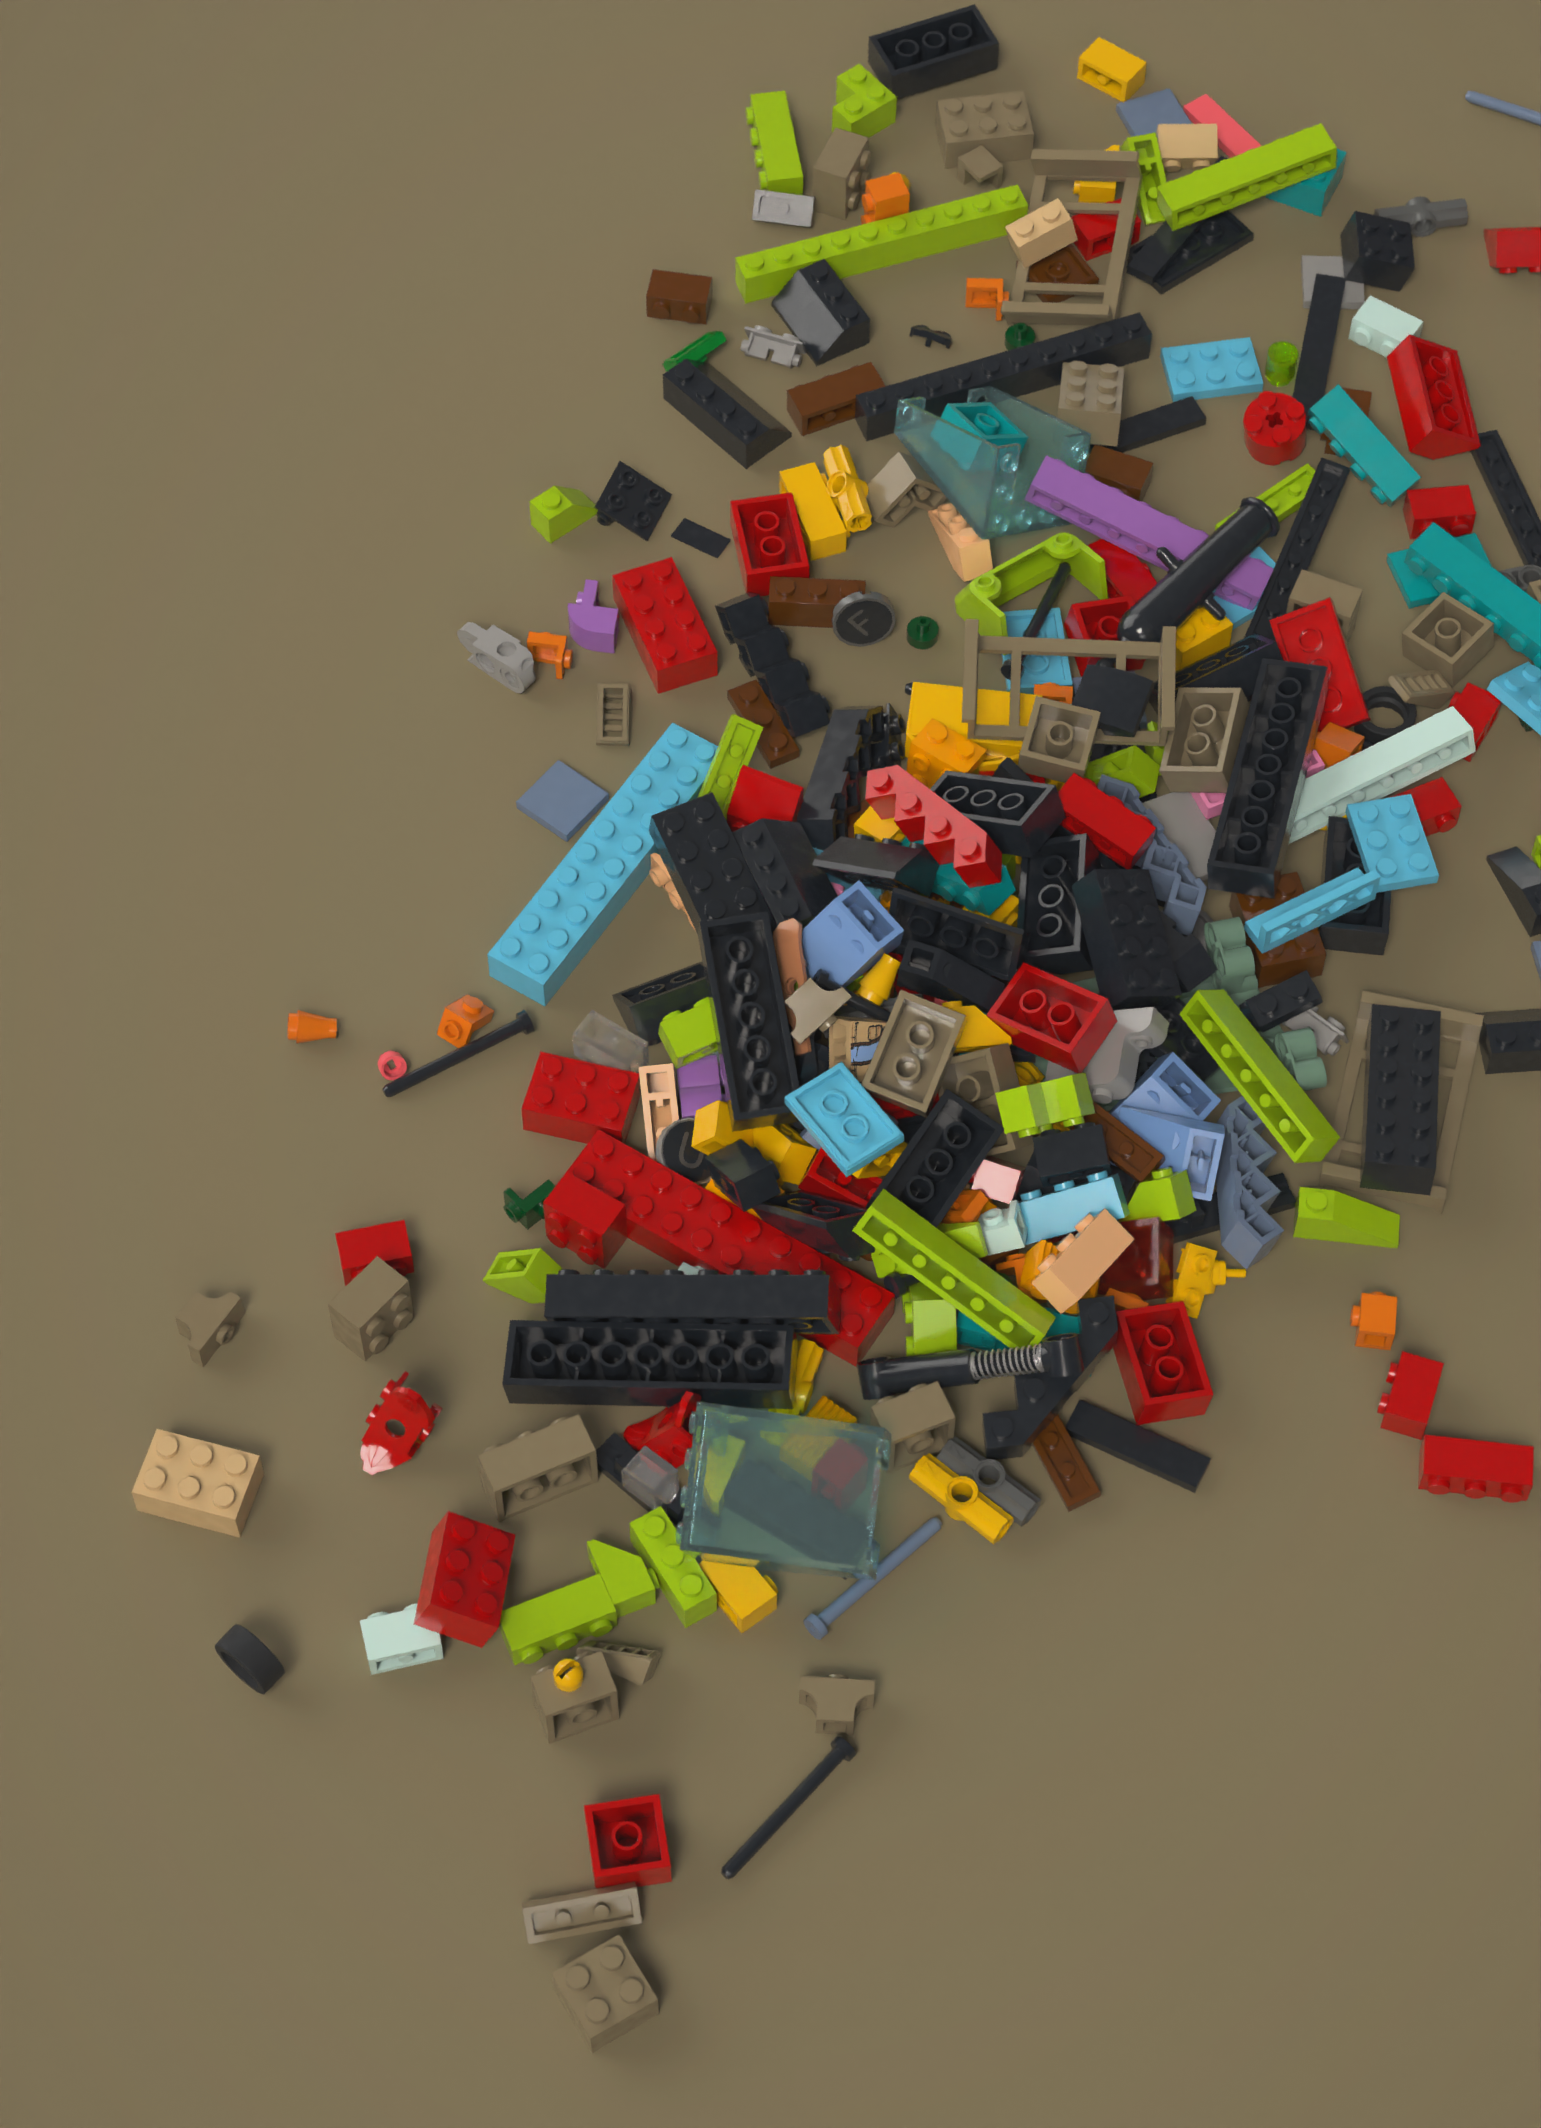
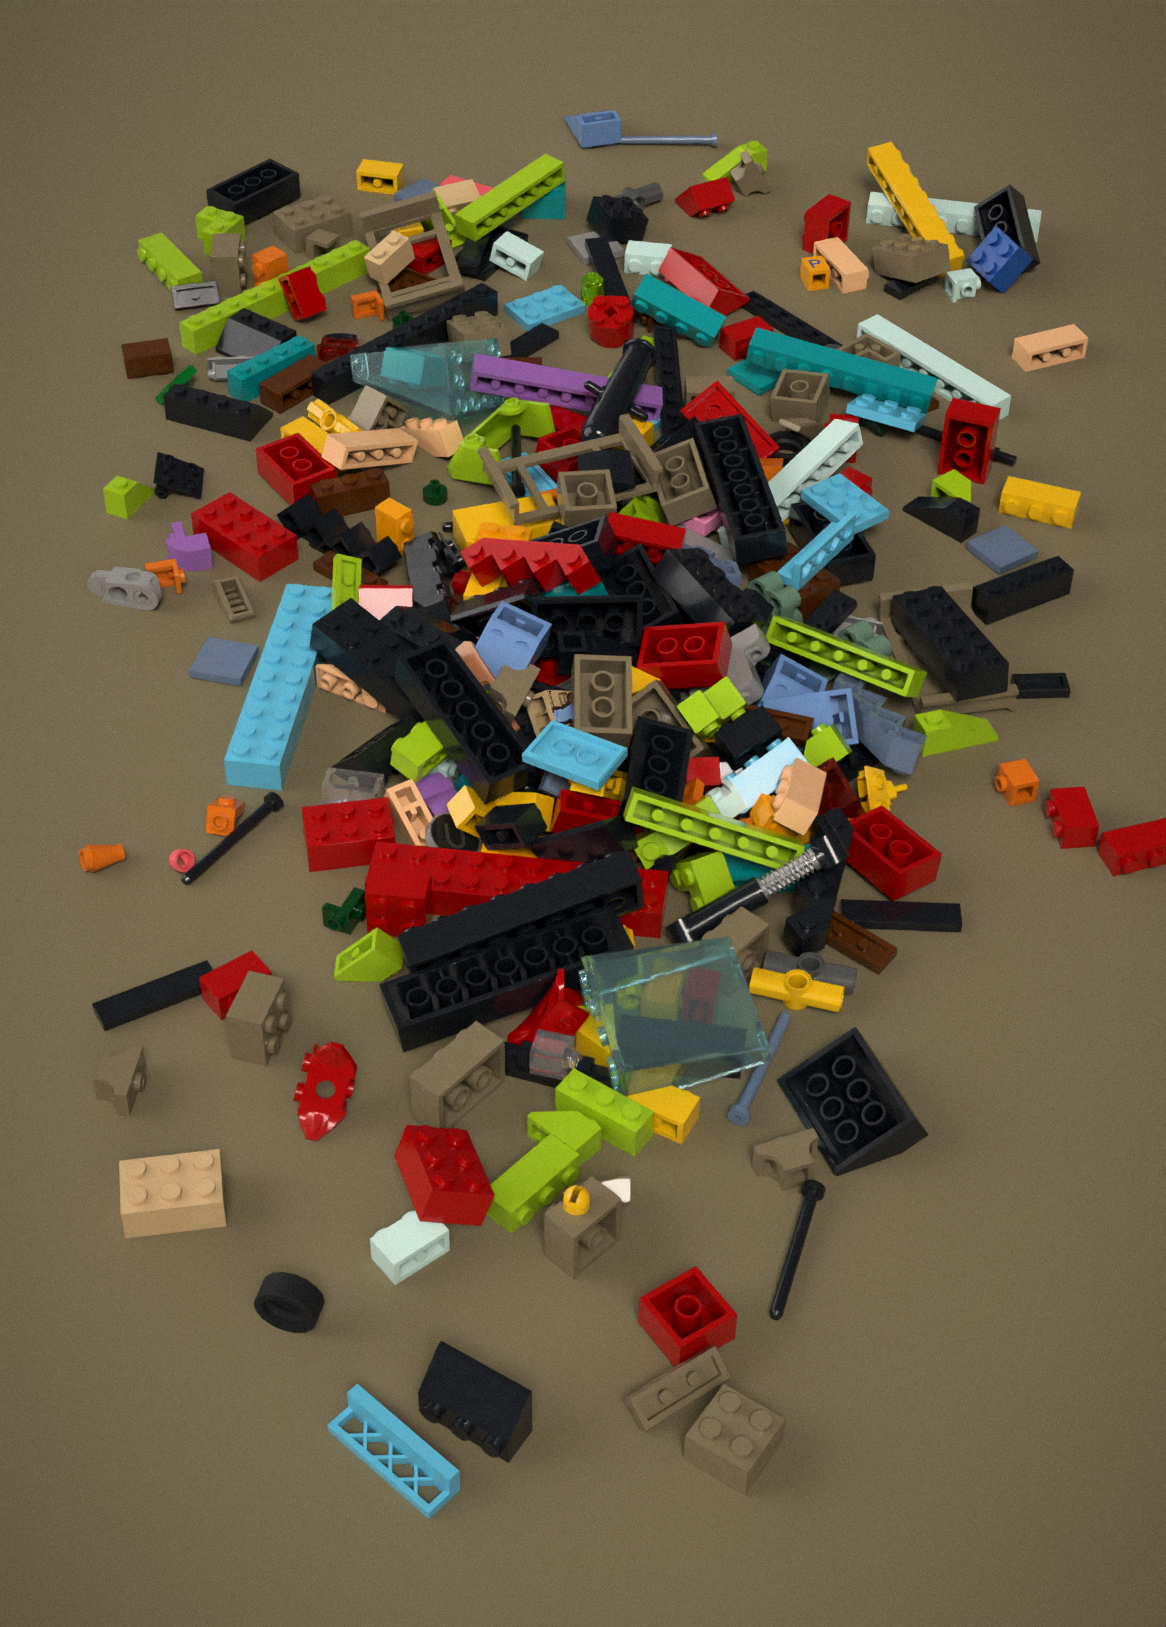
camera: 25 degrees left, 15 degrees down
(286, 1229) = (150, 996): none -> black tile
(292, 1858) = (404, 1442): none -> medium azure fence
(372, 1849) = (476, 1402): none -> black slope
(700, 538) = (239, 486): black sticker -> none
(813, 361) = (246, 376): none -> teal brick
(838, 677) = (395, 521): none -> light orange brick
(863, 618) = (392, 484): black tile -> none
(867, 545) = (369, 448): none -> light nougat brick
(879, 980) = (548, 666): yellow cone -> none
(909, 256) = (302, 293): none -> red brick
(915, 355) = (334, 347): none -> clear red piece
(941, 1665) = (852, 1105): none -> black slope
(1214, 272) = (516, 256): none -> light aqua brick
(1441, 64) = (595, 128): none -> medium blue slope
(1494, 1190) = (1041, 685): none -> black tile

